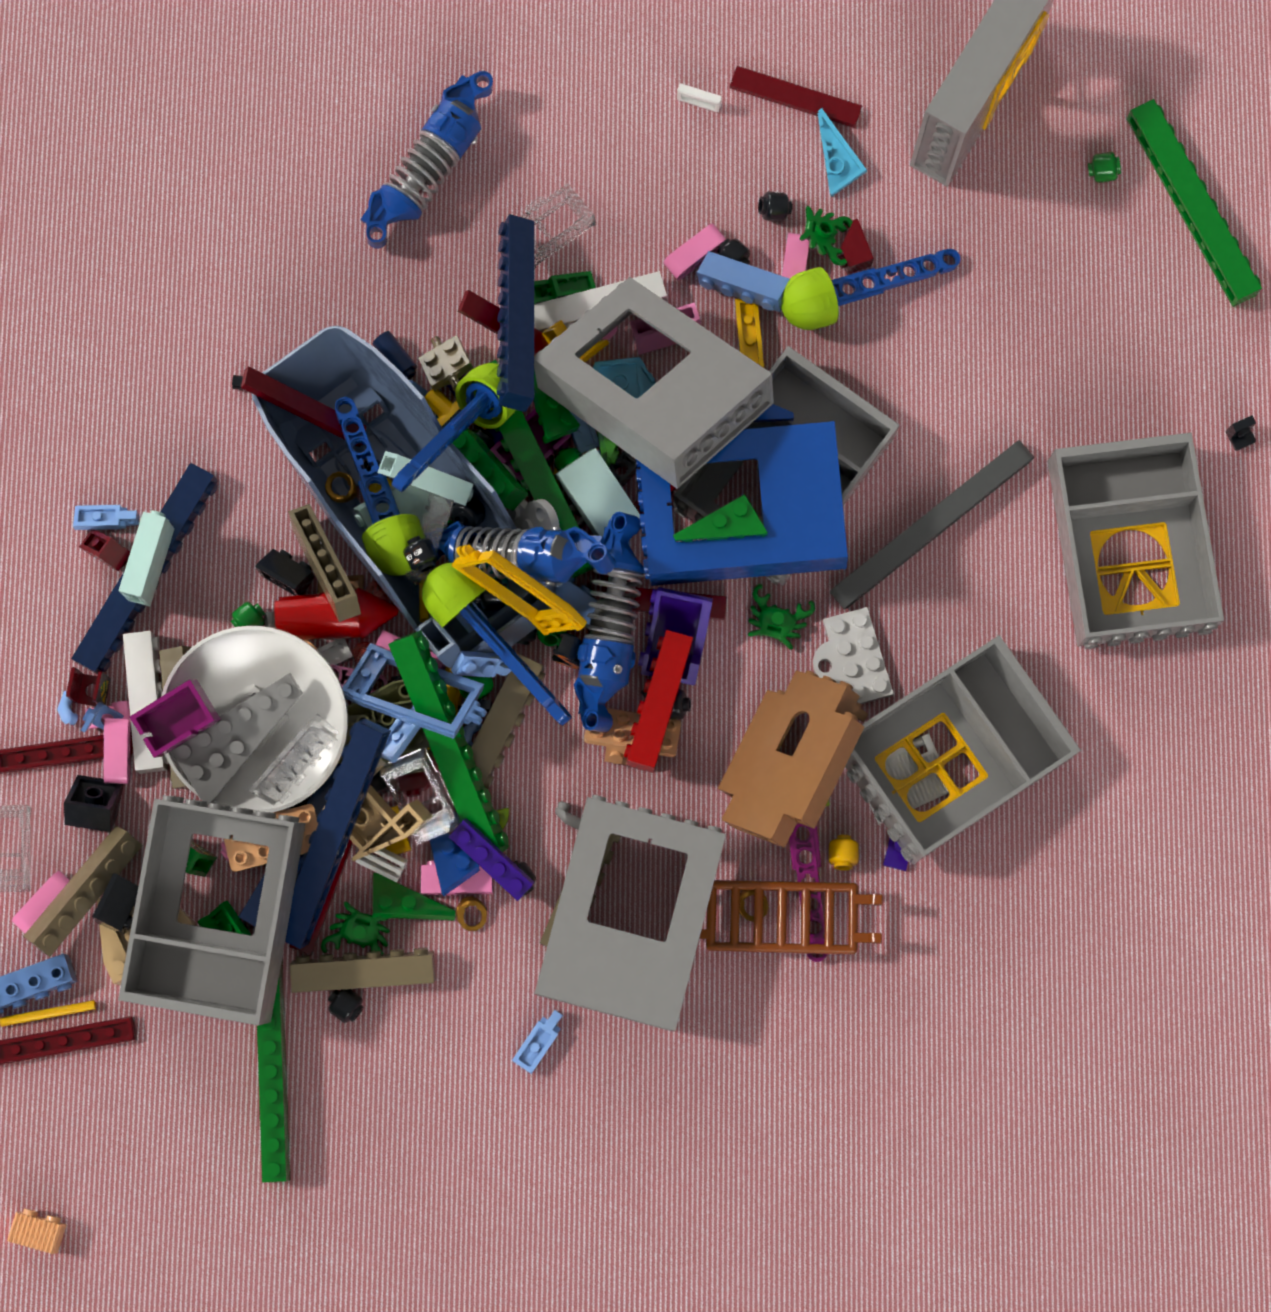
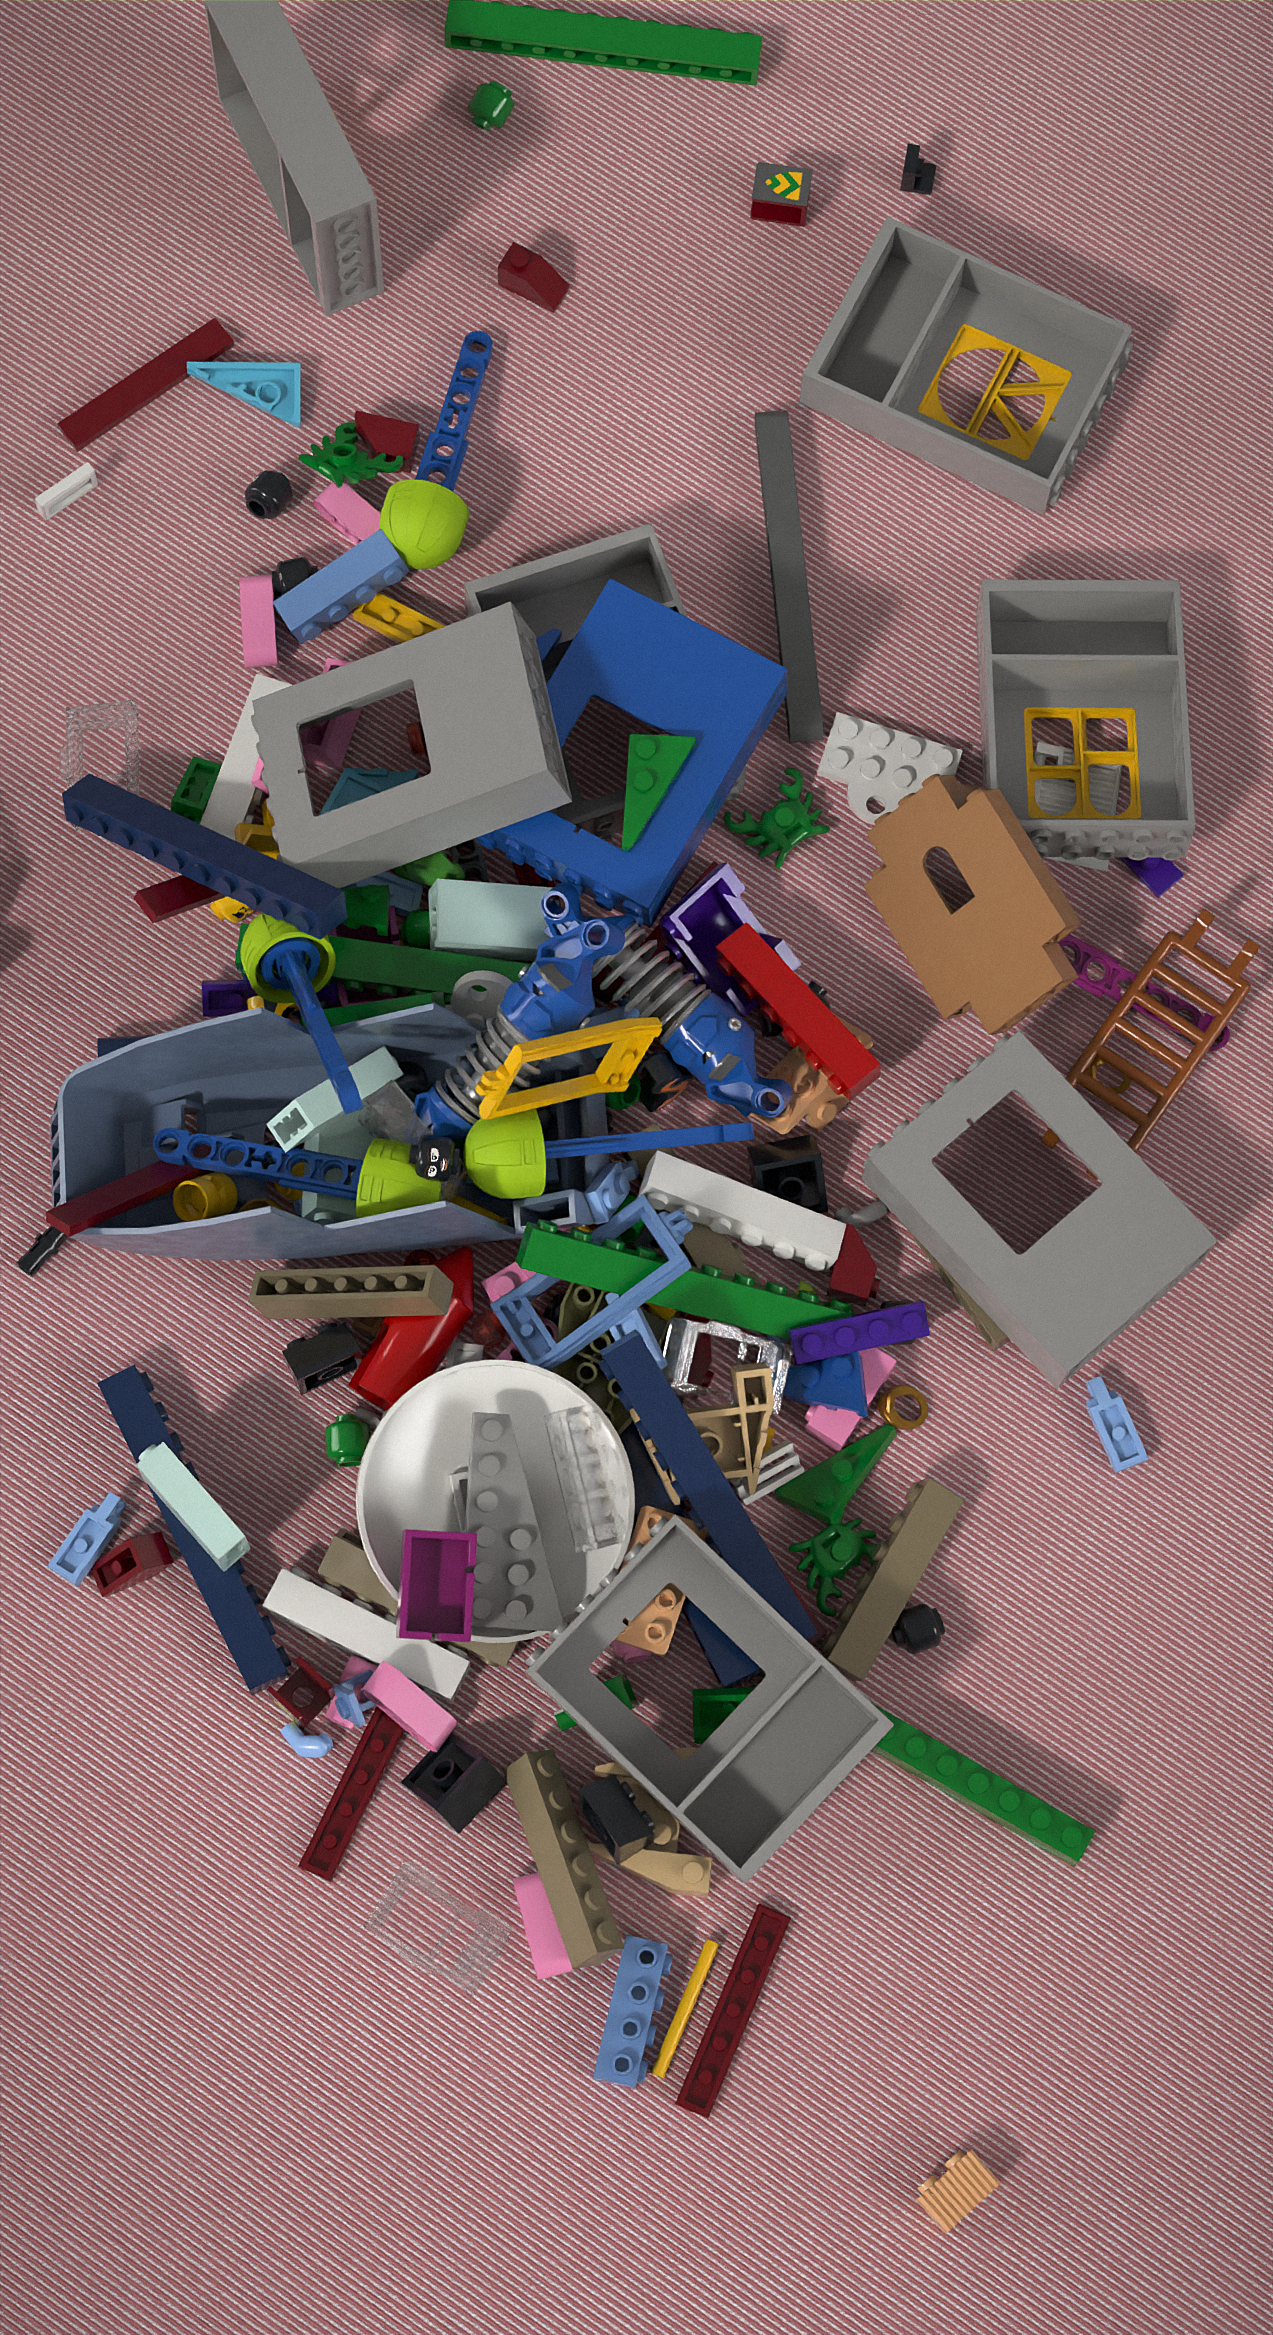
camera: 60 degrees left, 5 degrees down
(329, 448) = (205, 1197): none -> yellow wheel
(445, 363) = (191, 992): dark tan plate -> none
(519, 747) = (742, 1212): none -> white brick
(532, 833) = (854, 1271): none -> dark red slope
(562, 761) = (790, 1171): none -> black slope
(843, 853) = (1117, 928): yellow head -> none
(1013, 261) = (531, 277): none -> dark red slope
(1169, 365) = (781, 194): none -> piece

